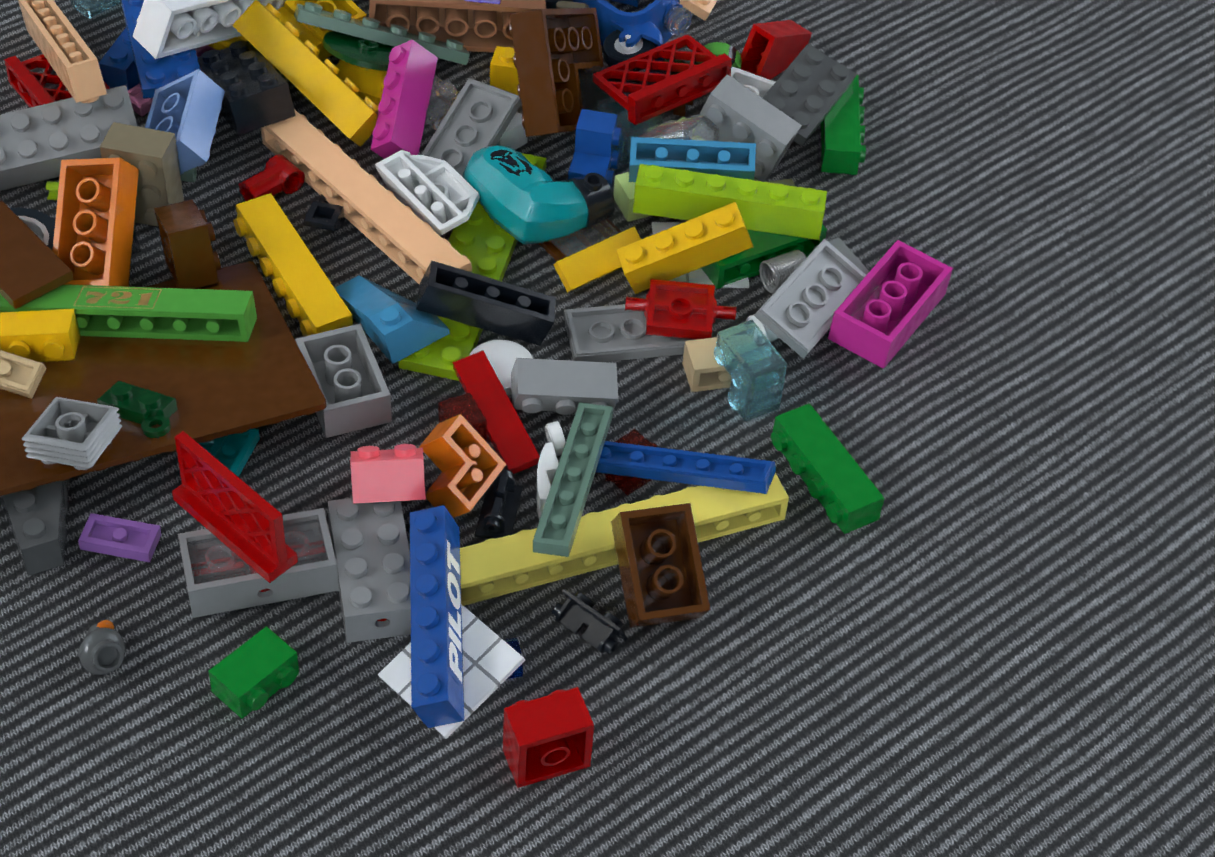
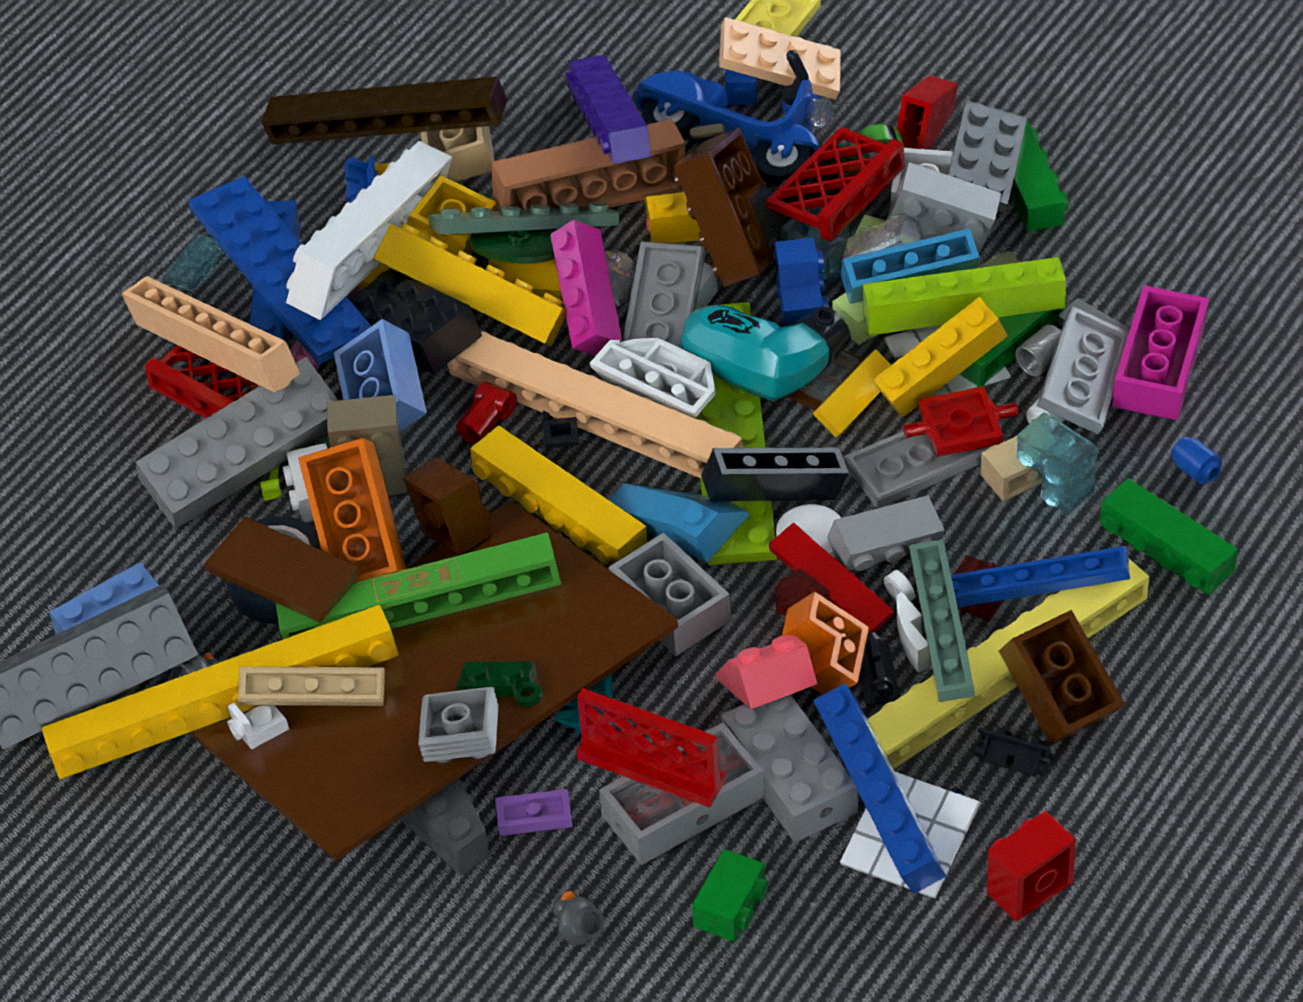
camera: 10 degrees left, 0 degrees up
(884, 408) = (1196, 460): none -> blue brick

